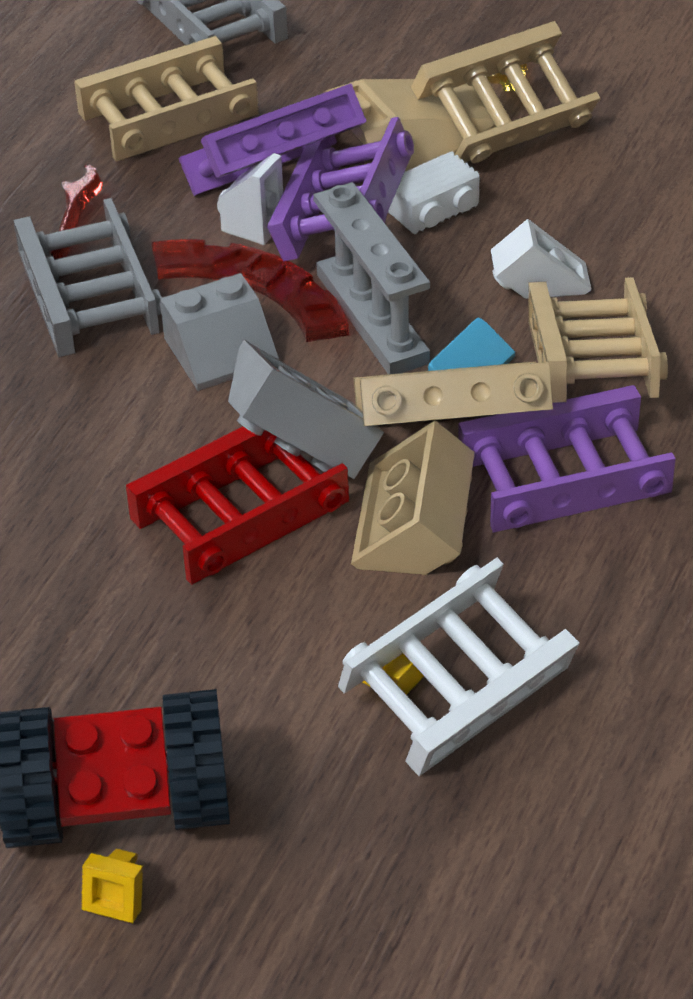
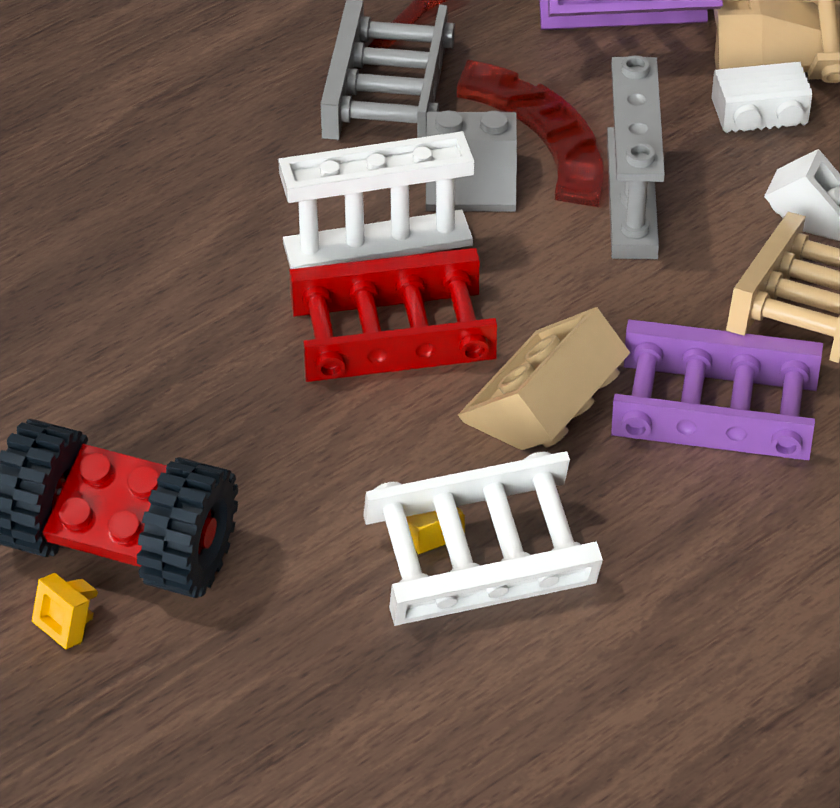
camera: 25 degrees right, 0 degrees up
(149, 373) = (375, 168): none -> white fence
(252, 200) = (581, 53): white slope -> none
(299, 412) = (481, 256): light grey slope -> none
(319, 170) = (670, 40): medium lavender fence -> none
(453, 393) = (631, 288): tan fence -> none
(473, 348) = (689, 269): medium azure slope -> none

